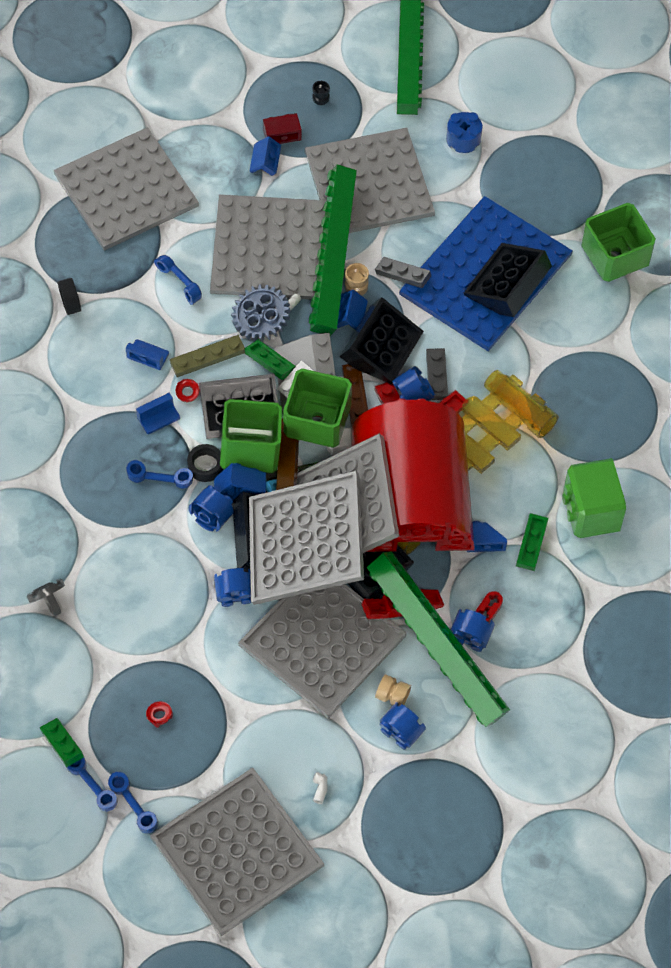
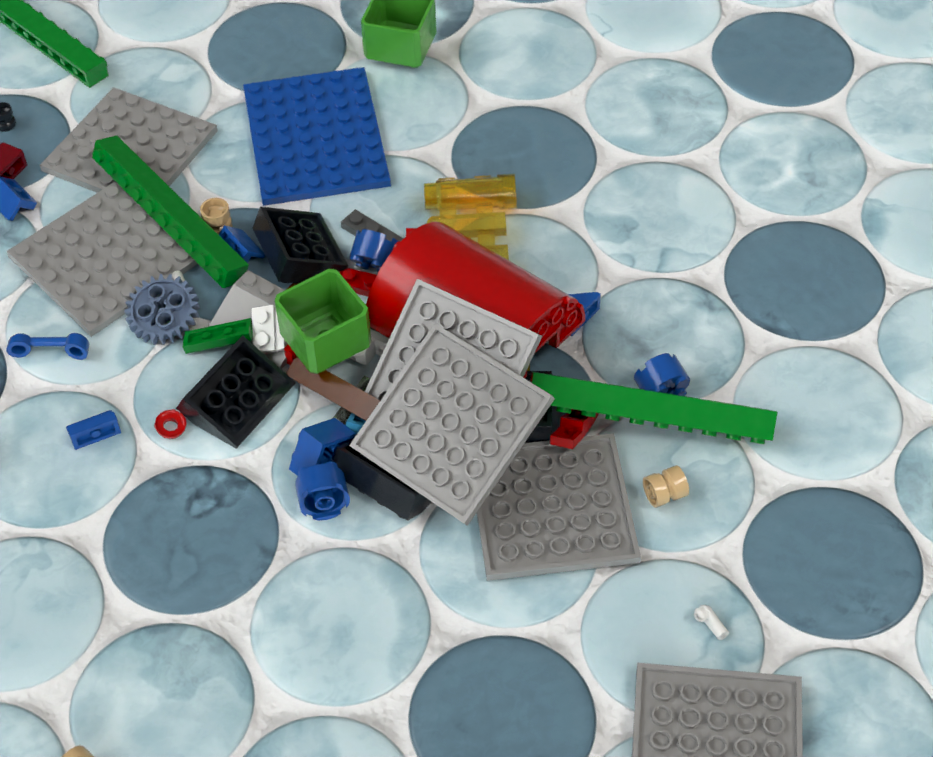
camera: 45 degrees left, 10 degrees down
(46, 592) = (259, 705): dark grey tile -> none
(137, 473) = (209, 527): blue piece -> none
(157, 413) = (166, 466): blue panel -> none
(159, 706) = (490, 696): red piece -> none
(201, 450) = (261, 449): black tyre -> none
(207, 356) = (152, 384): olive plate -> none
(233, 586) = (425, 532): blue brick -> none
(251, 434) = (285, 397): bright green plate -> none
(402, 725) = (711, 502): blue brick -> none
(403, 272) = (249, 182): dark grey plate -> none
(464, 131) = (168, 53): blue brick -> none
(485, 605) = (639, 354): red beam -> none
(509, 278) = (344, 117): black slope -> none
(532, 542) = (614, 281): green plate -> none
(594, 498) = (625, 201): bright green plate -> none

